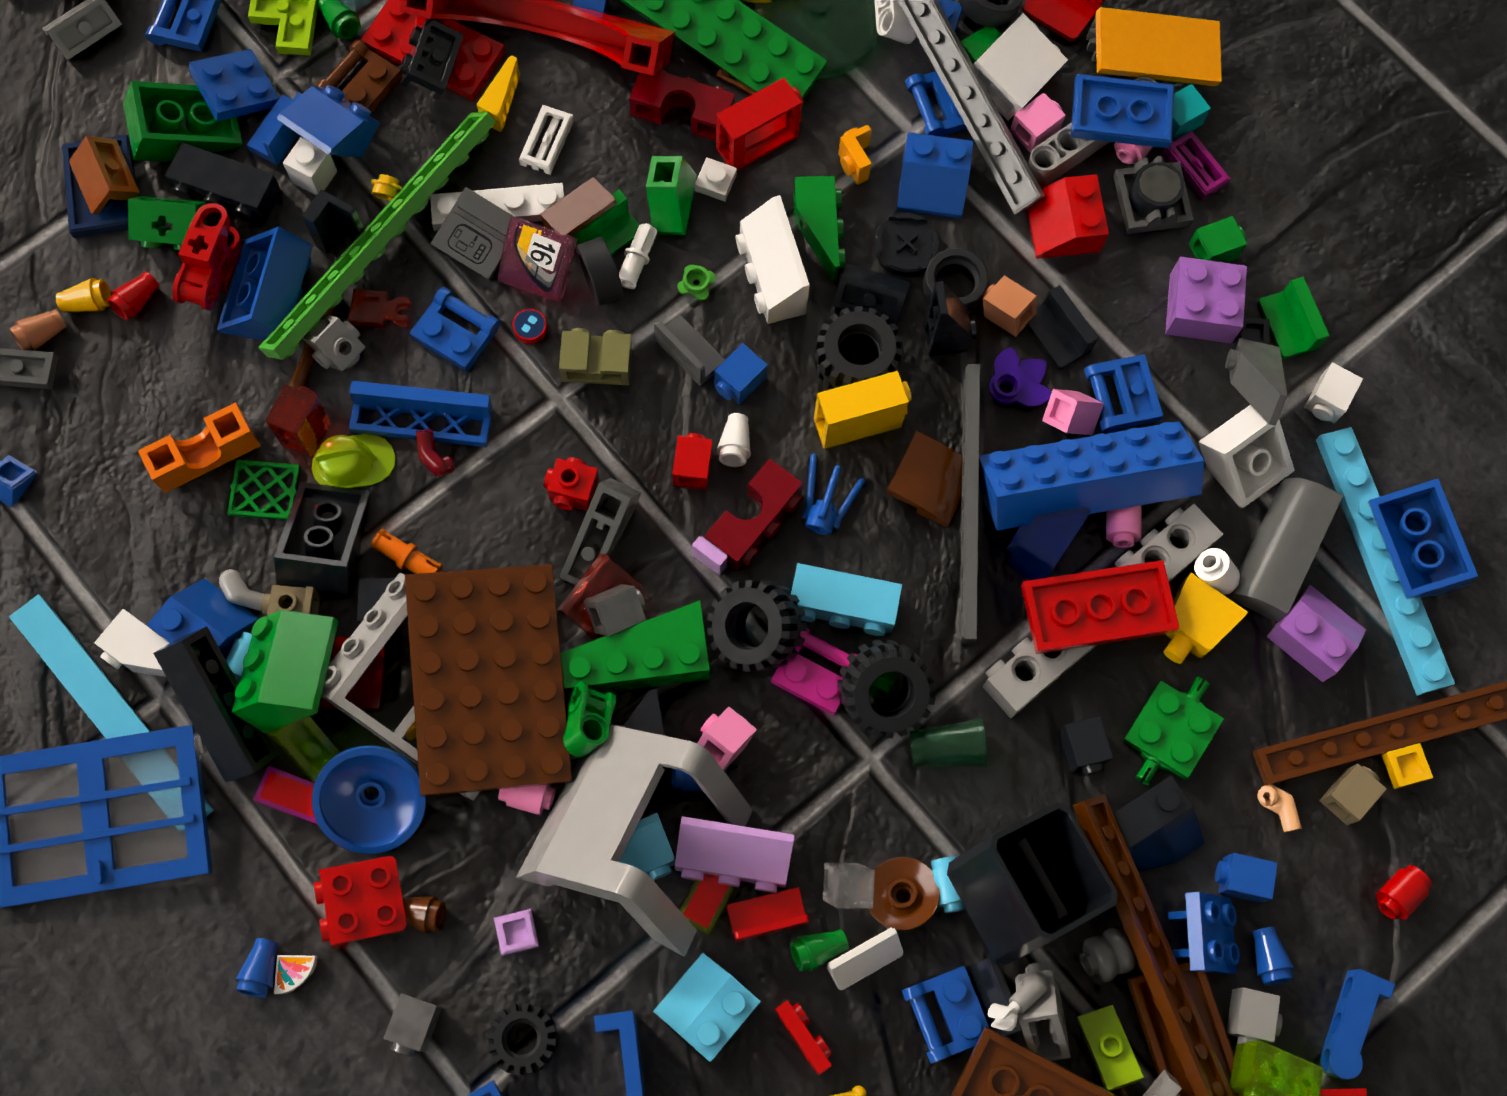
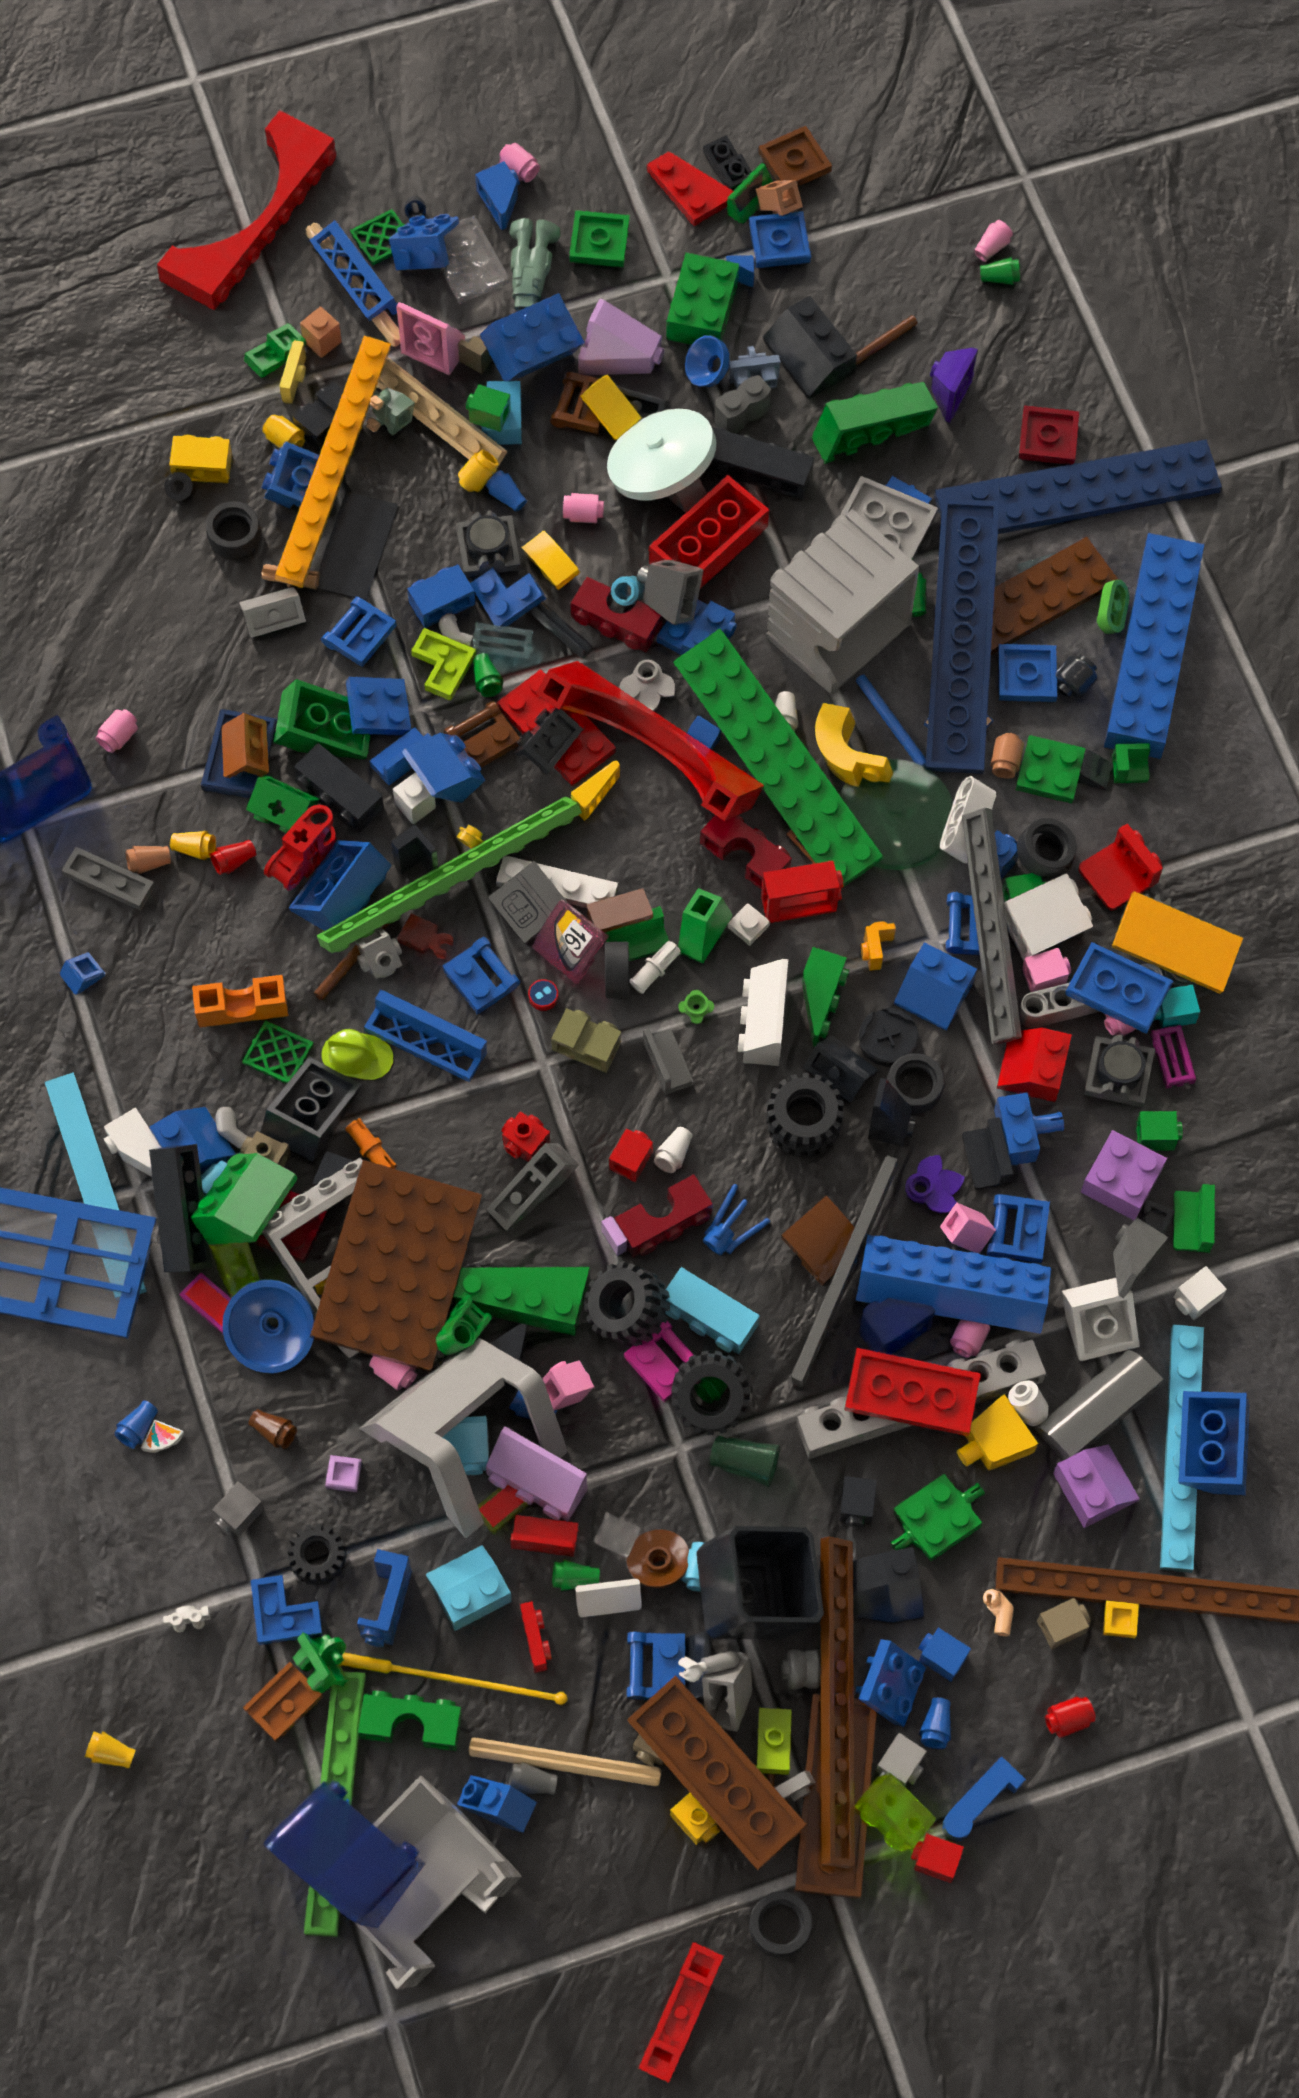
camera: 25 degrees right, 5 degrees down
(298, 420) = (326, 1006): clear red brick -> none
(360, 901) = (233, 1401): red bracket -> none
(429, 457) = (419, 1072): dark red arm -> none
(538, 162) = (604, 858): white tile -> none
(600, 577) = (512, 1236): clear red plate -> none
(615, 609) = (519, 1249): flat silver brick -> none
(740, 374) = (699, 1097): blue brick -> none
(861, 409) = (786, 1161): yellow brick -> none
(1009, 305) = (951, 1120): nougat brick -> none
(1085, 285) = (1023, 1127): none -> blue brick

